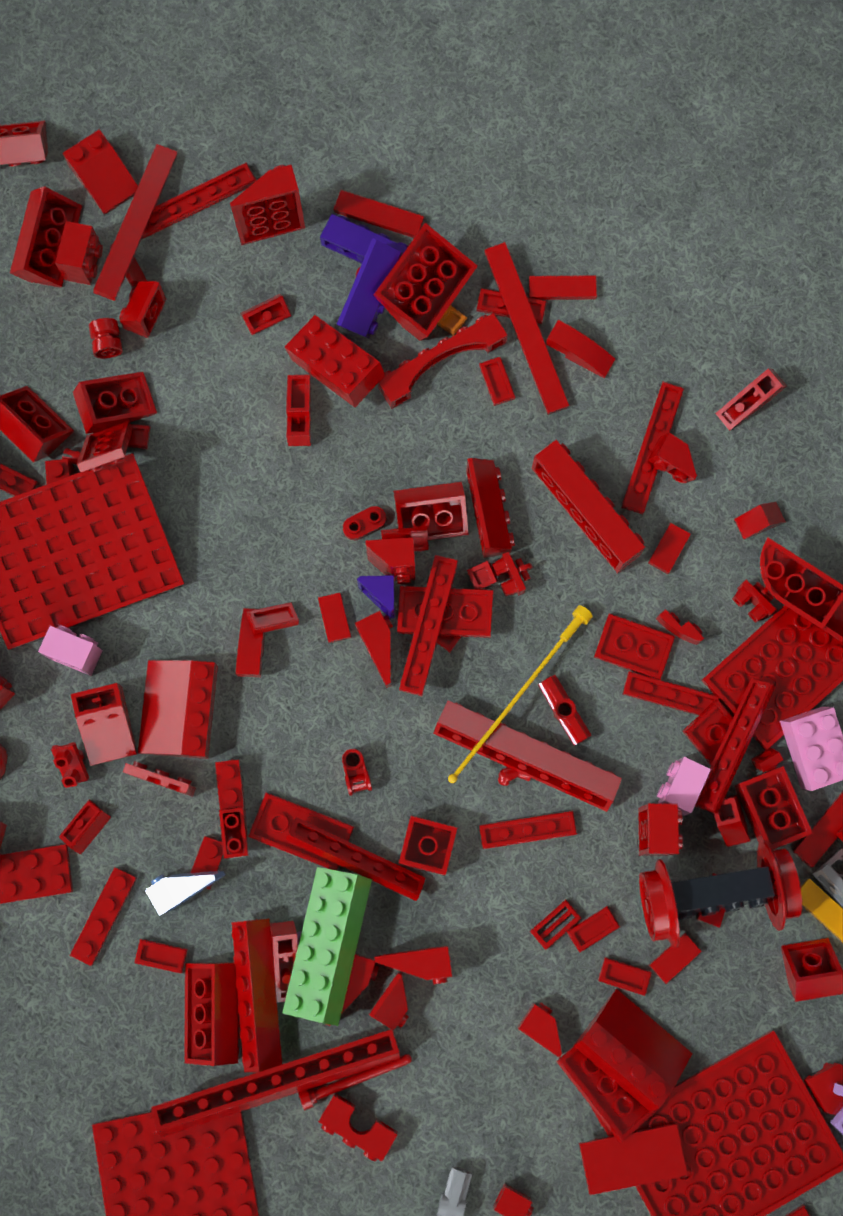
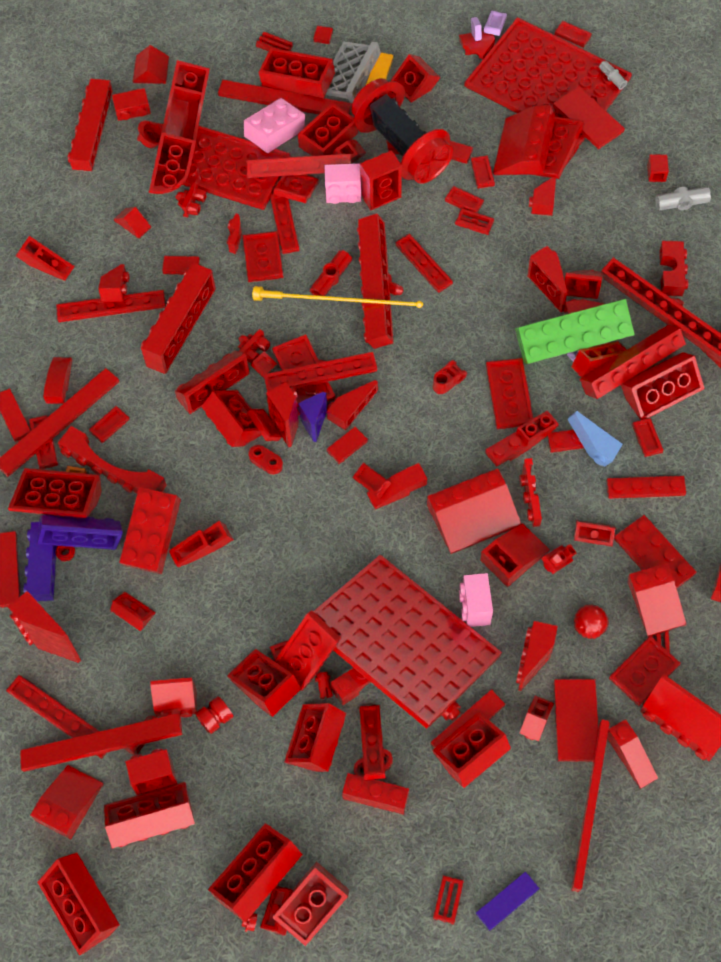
camera: 115 degrees left, 15 degrees down
(356, 859) = (507, 346): red plate -> none
(428, 845) = (471, 308): red brick -> none
(767, 760) = (297, 149): red plate -> none

